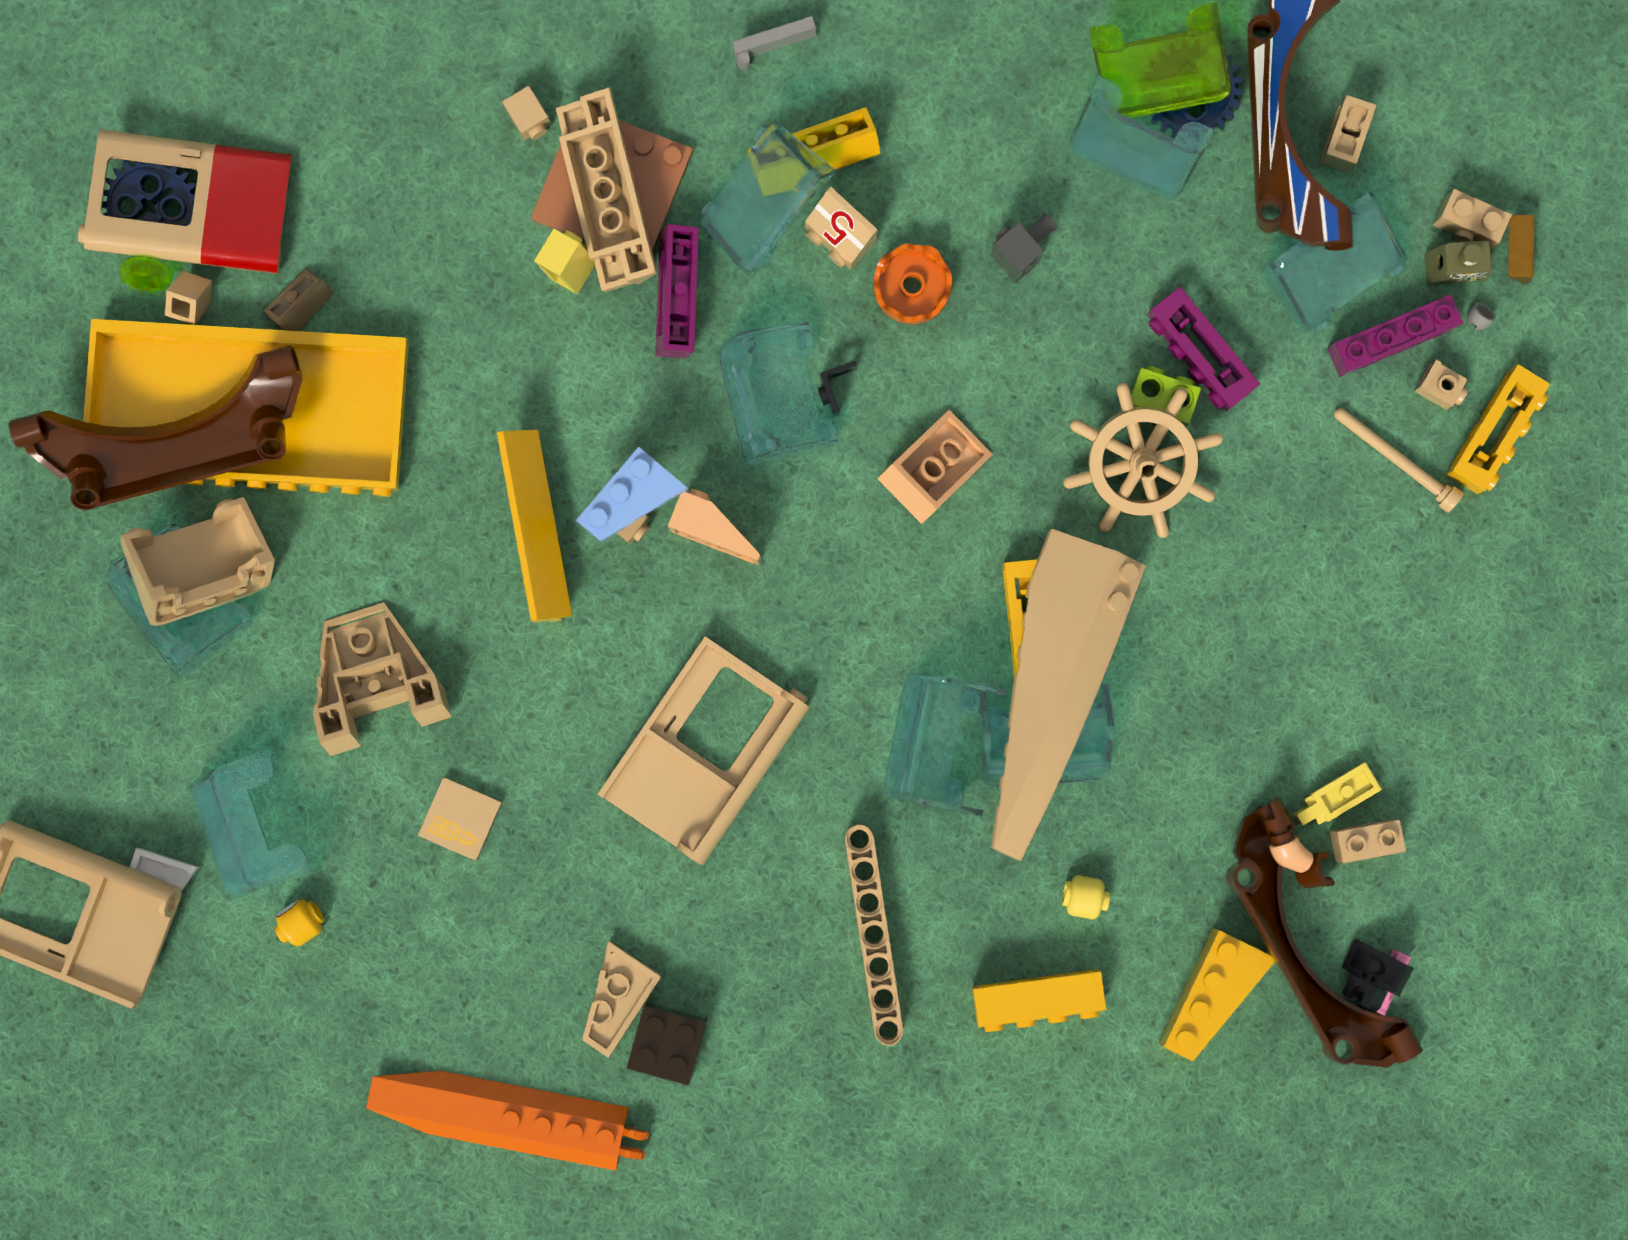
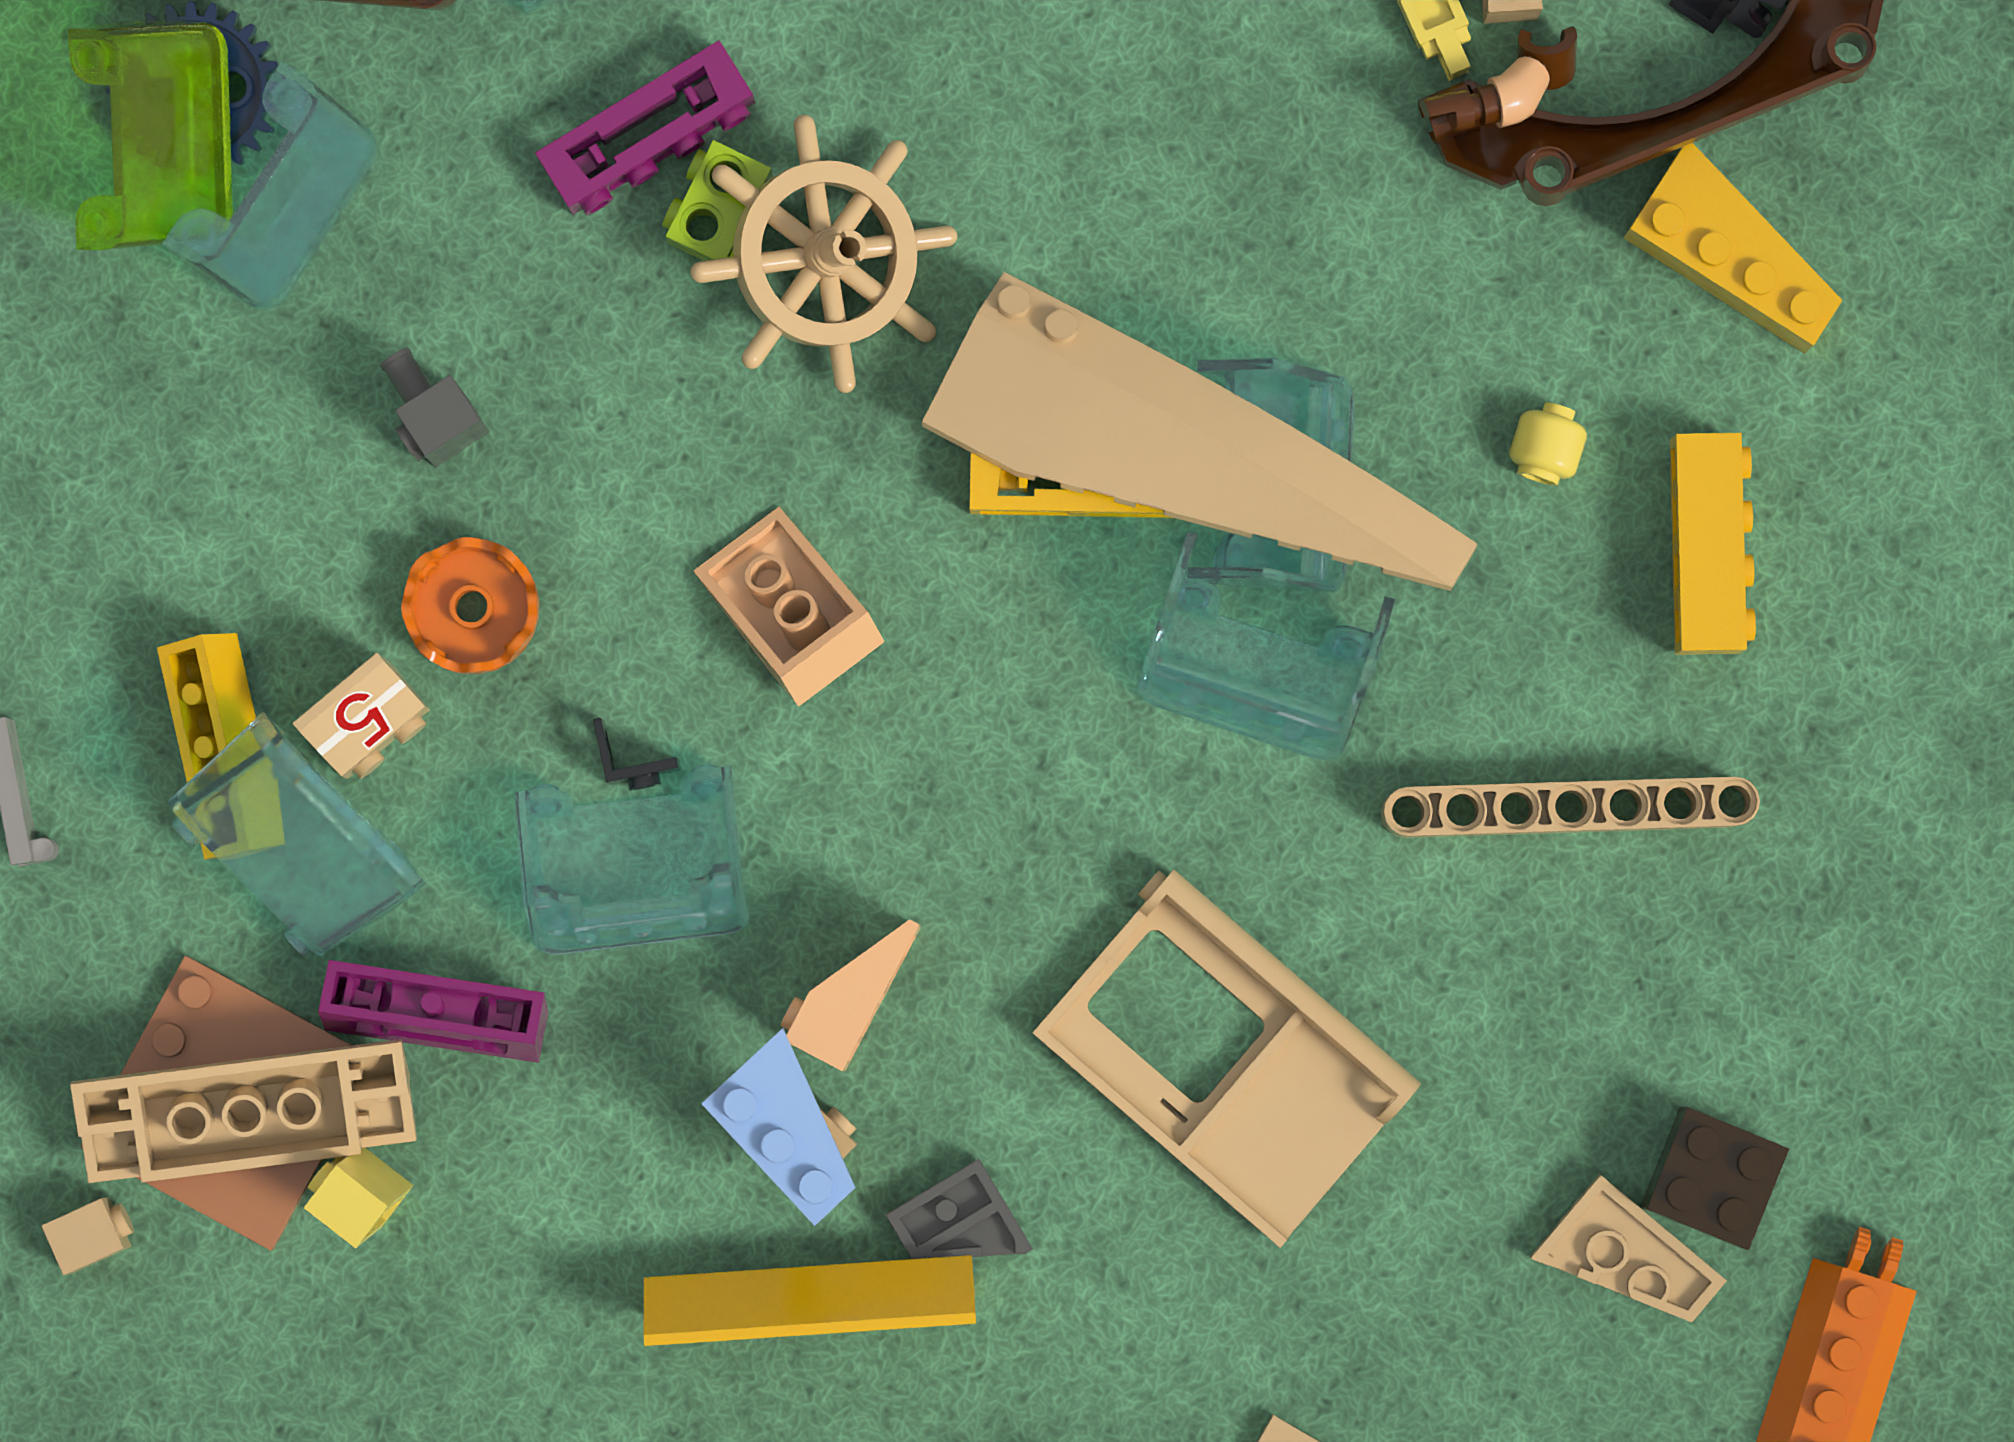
camera: 85 degrees left, 0 degrees up
(593, 607) = (959, 1219): none -> dark grey wing

